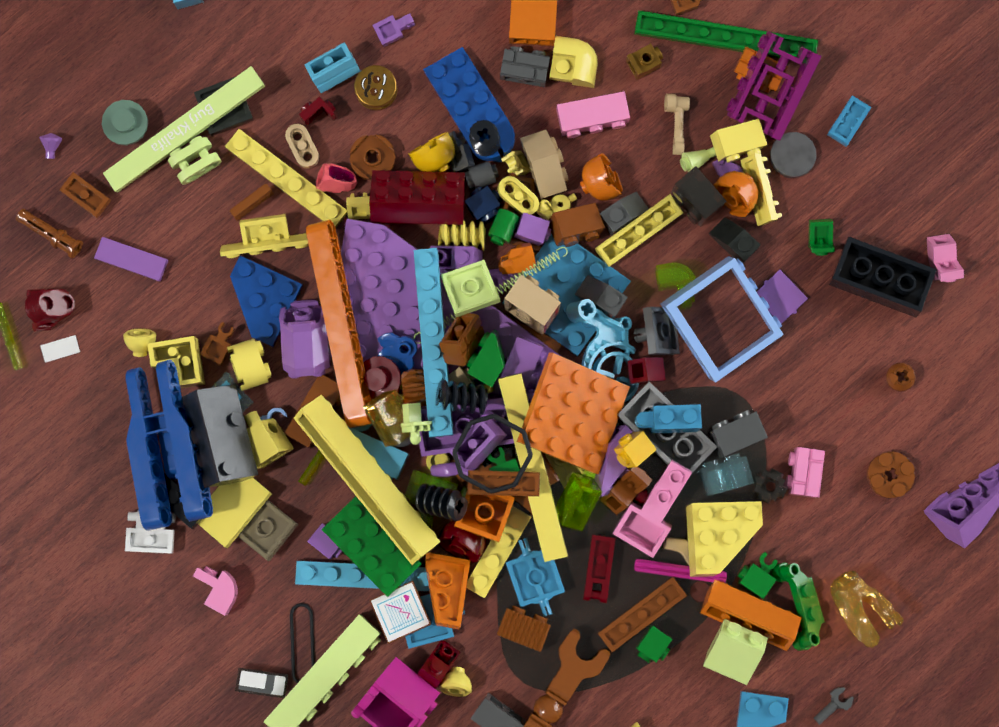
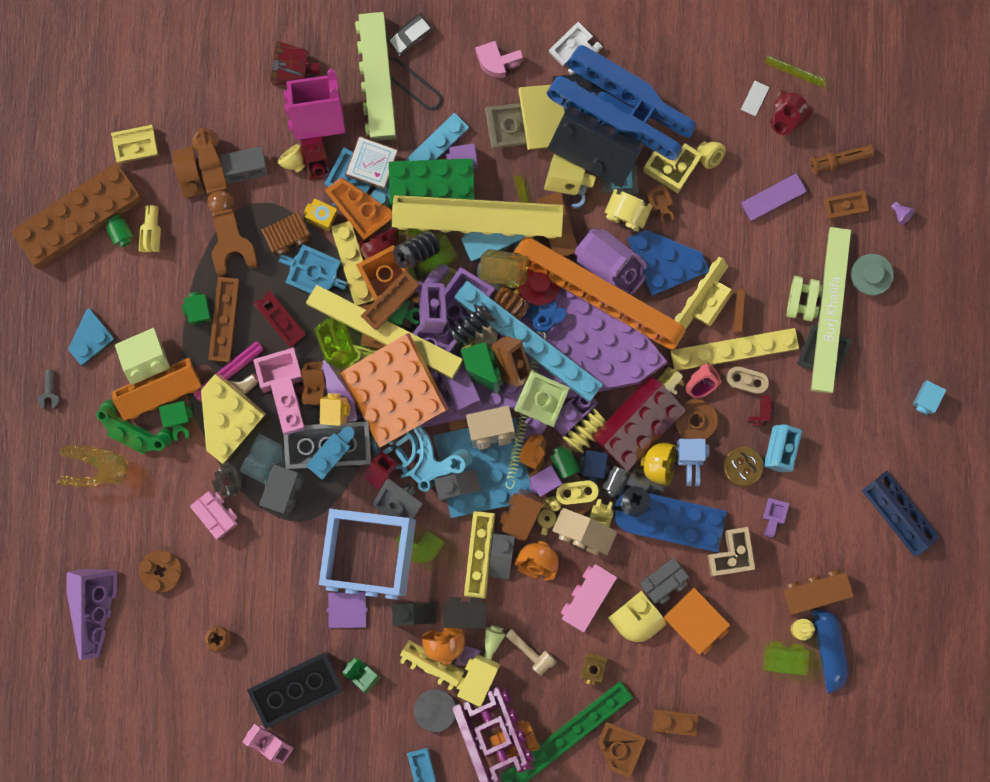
camera: 135 degrees right, 0 degrees up
(404, 132) = (692, 453): none -> light blue brick
(413, 422) = (486, 279): yellowish green piece -> none
(453, 26) = (739, 554): none -> tan brick
(482, 615) = (320, 214): none -> yellow brick
(507, 423) = (411, 341): black piece -> none

